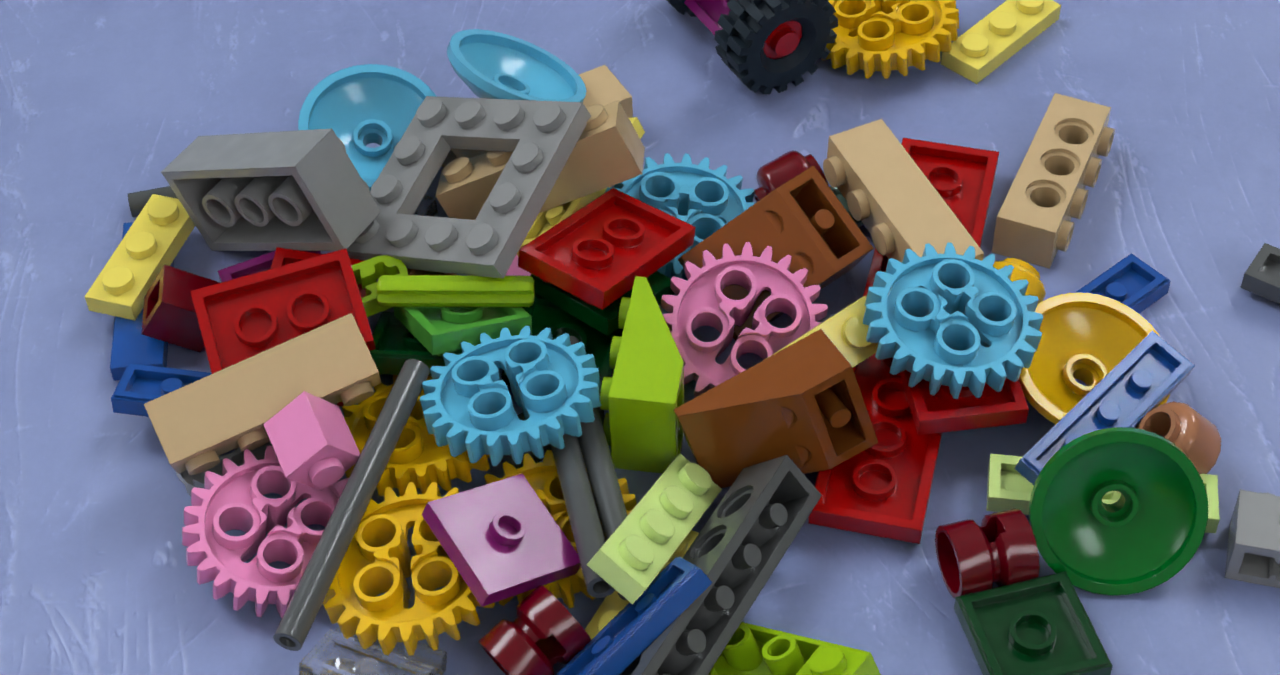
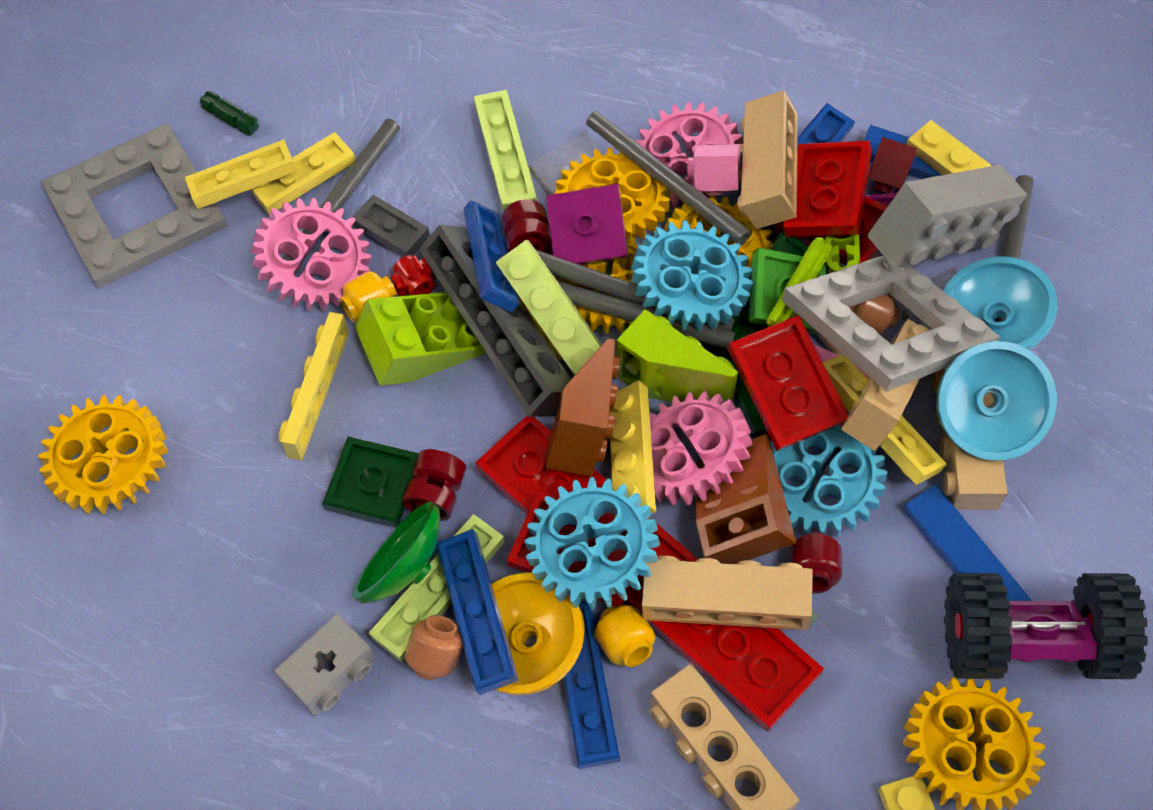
camera: 120 degrees right, 15 degrees up
(682, 97) = (957, 540): none -> blue tile

